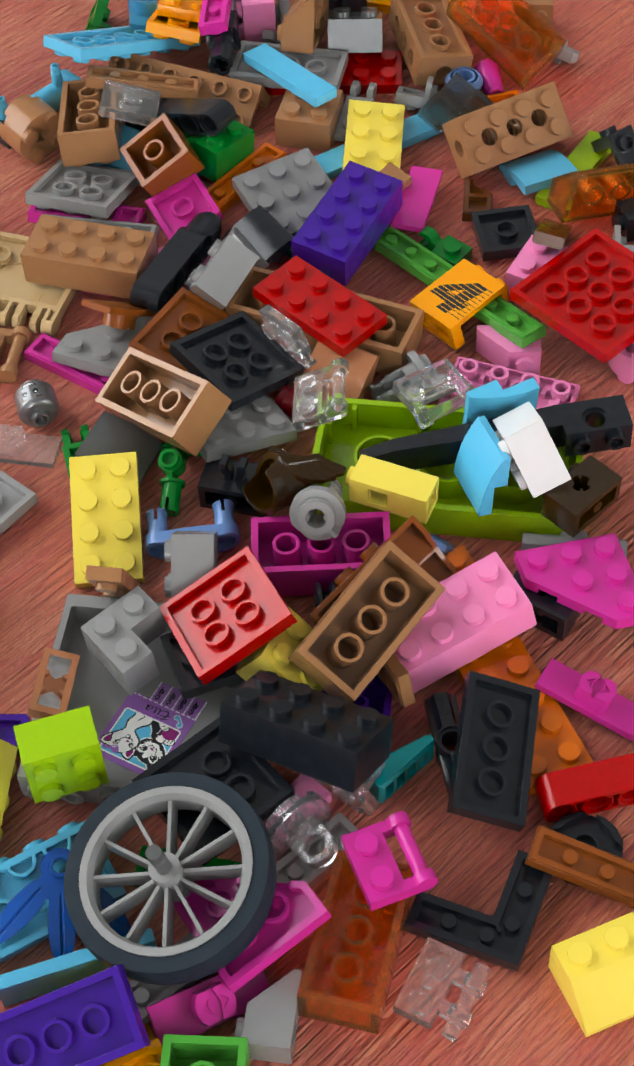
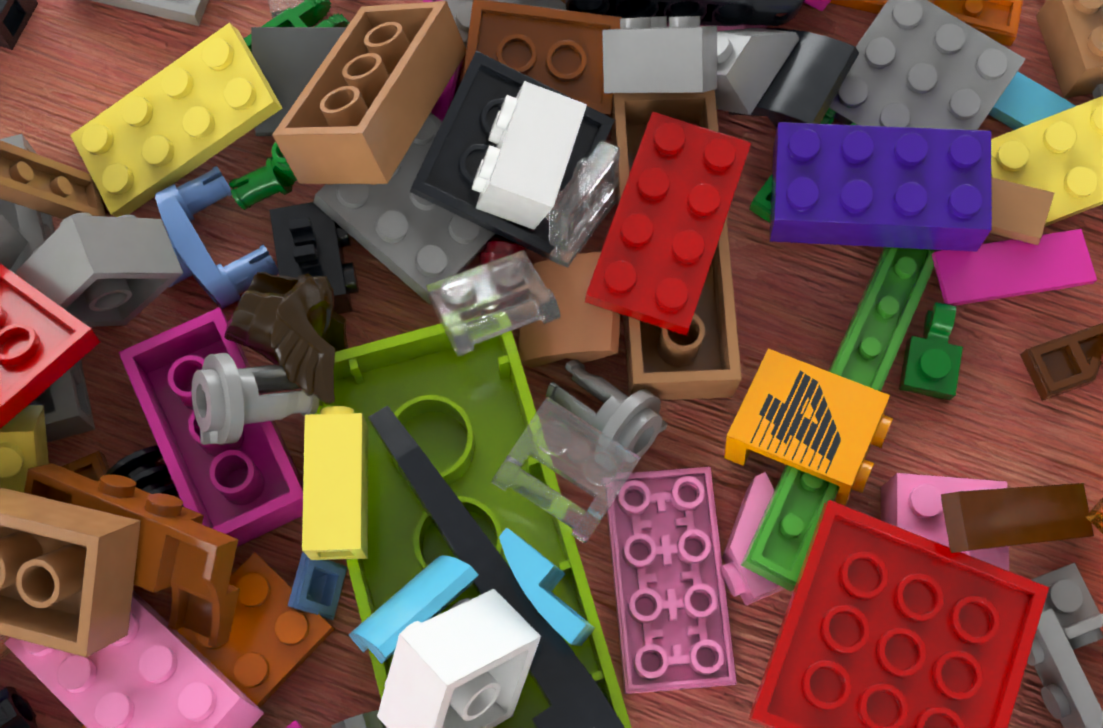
camera: 60 degrees right, 20 degrees up
(256, 333) = (531, 155): none -> white brick
(502, 231) = (1018, 431): black plate -> none

